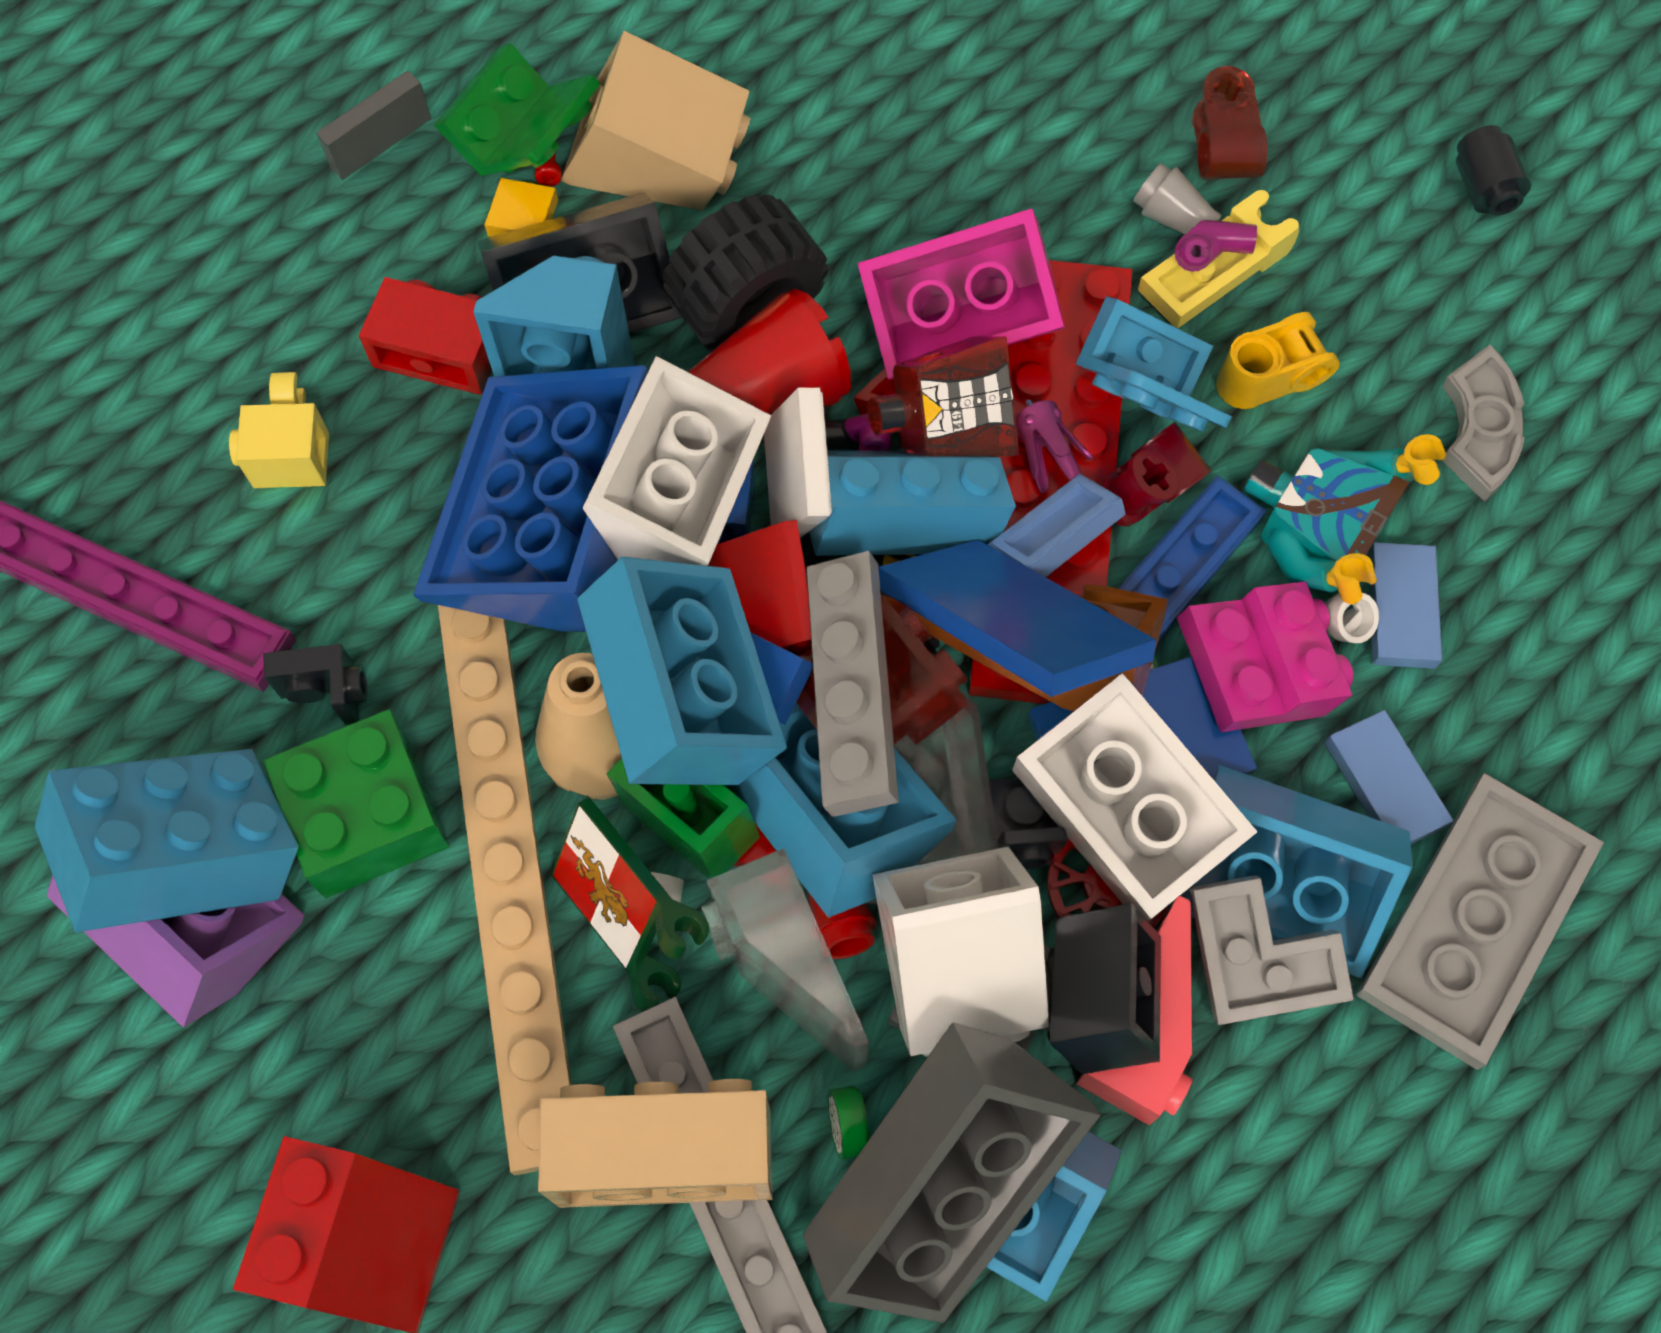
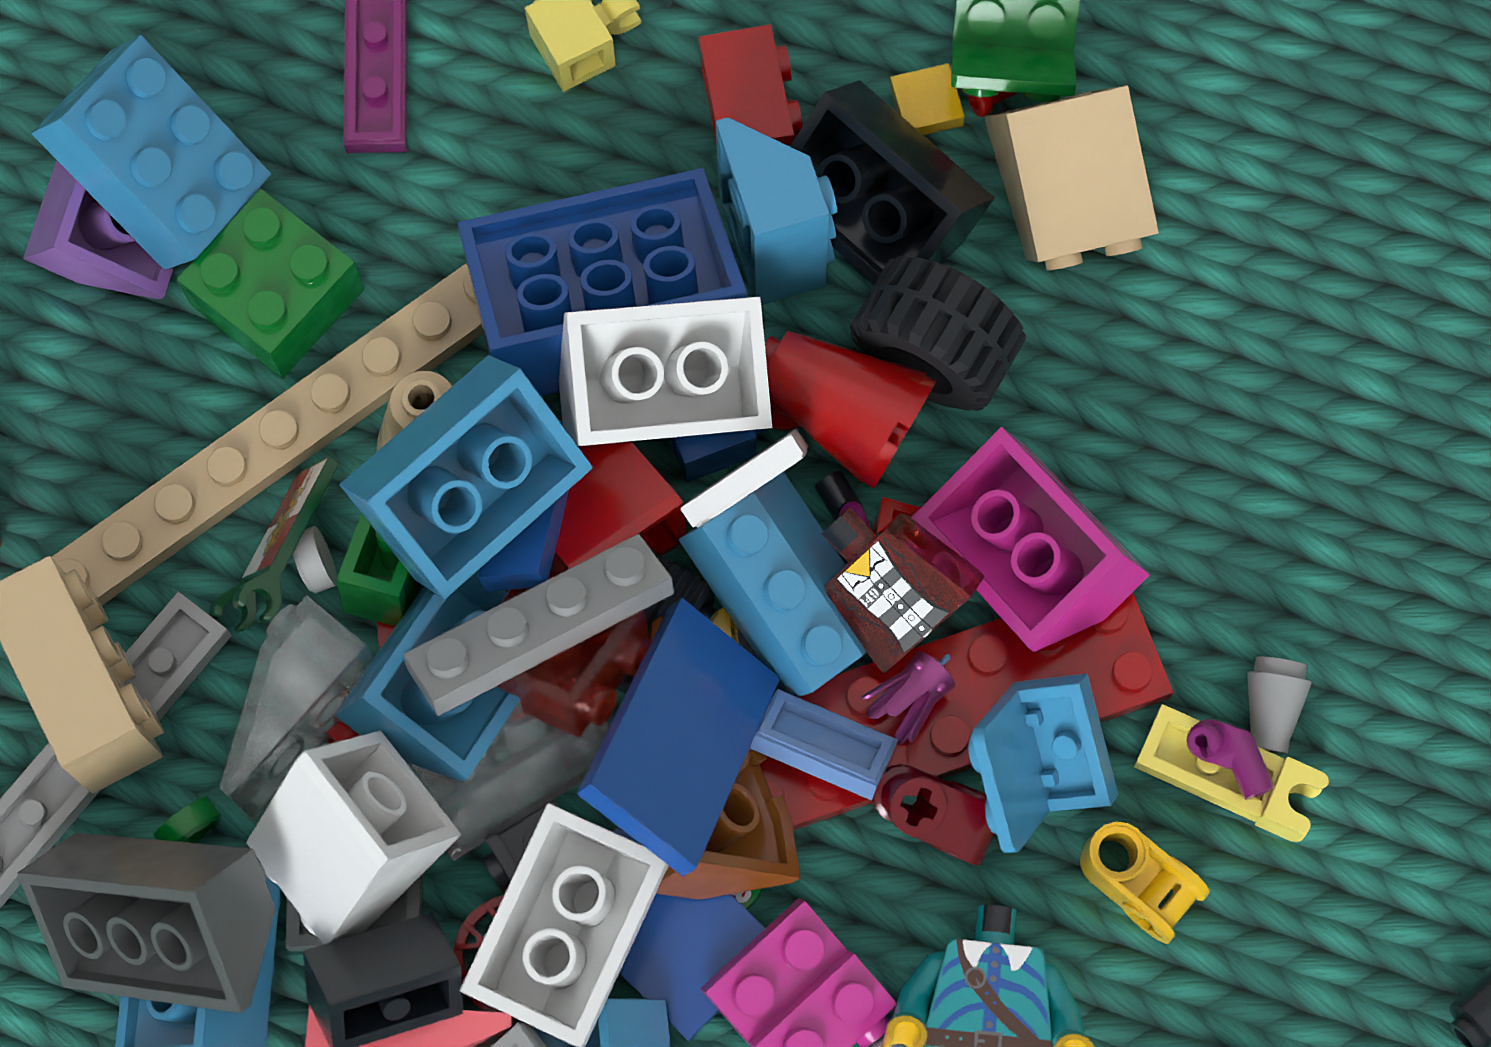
camera: 65 degrees right, 5 degrees up
(311, 672) = (376, 195): black bracket -> none
(1196, 548) = (884, 886): blue tile -> none
(1229, 127) = (1388, 718): clear red piece -> none

